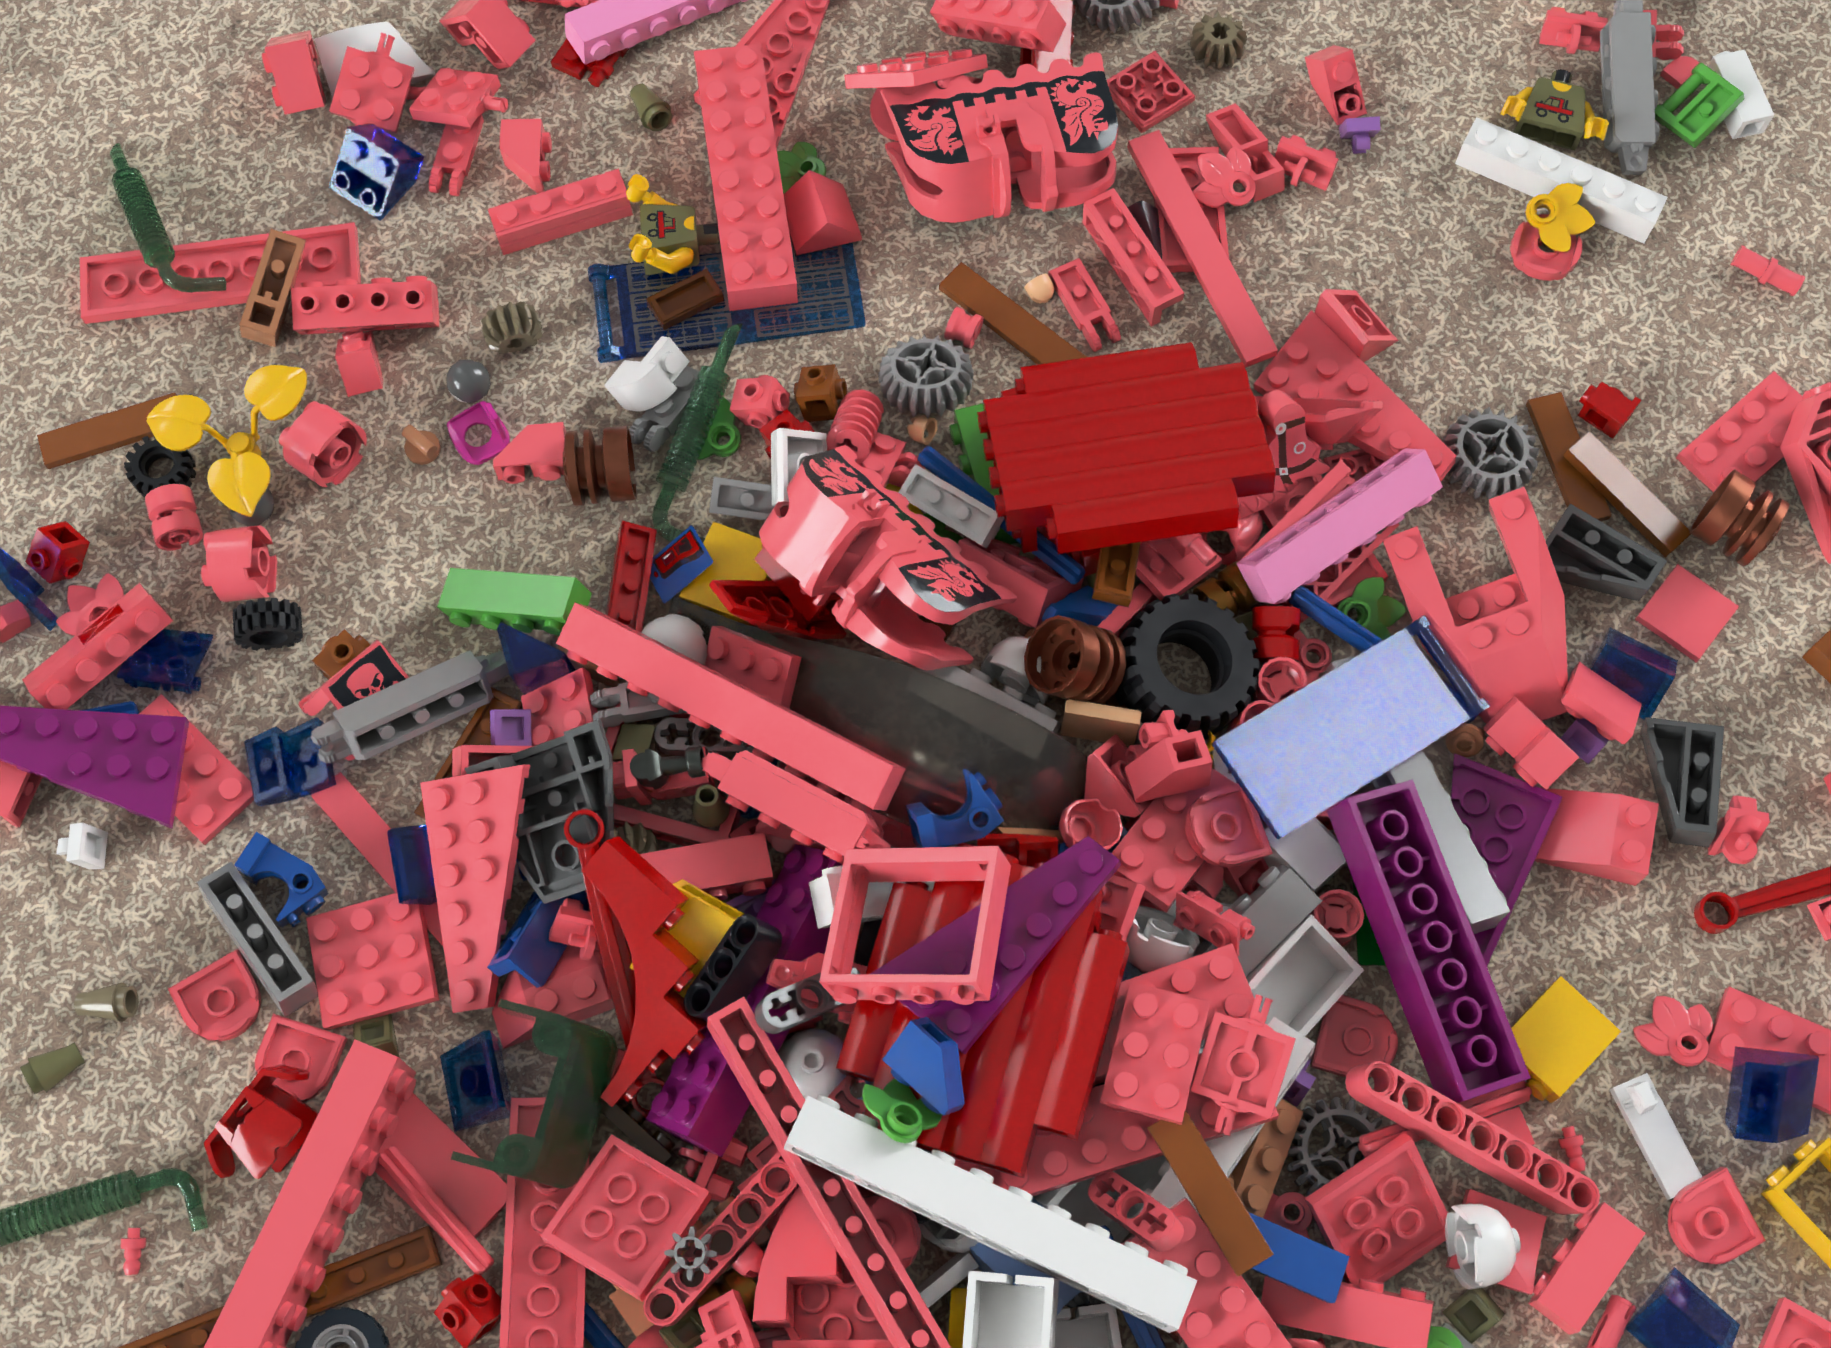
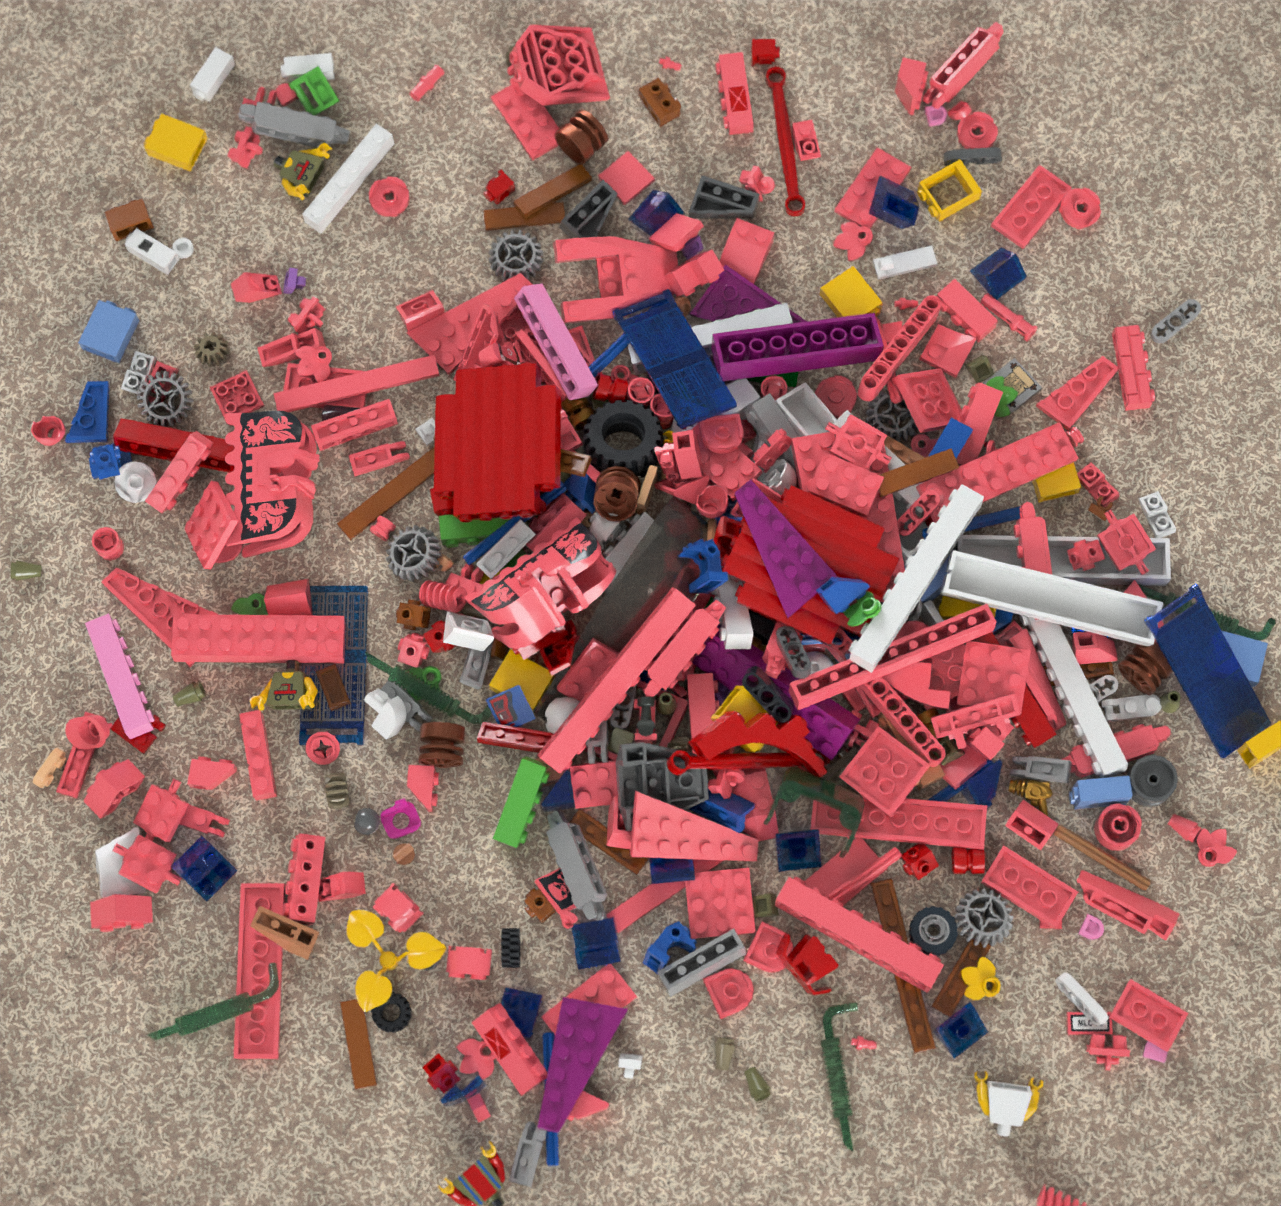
camera: 80 degrees left, 5 degrees up
(173, 516) = (420, 1003): coral wheel -> none
(510, 727) = (599, 811): medium lavender tile -> none
(572, 299) = (318, 755): none -> coral gear
(684, 1244) = (918, 729): light grey gear -> none
(749, 1261) = (917, 709): coral hinge -> none
(915, 865) = (734, 582): coral window -> none
(1040, 288) = (364, 480): light nougat hinge -> none
(1372, 607) = (599, 337): bright green plate -> none
(1482, 1244) = (951, 356): white cylinder -> none
(1564, 216) = (376, 182): yellow plate -> none
(1712, 1220) = (950, 246): coral tile -> none

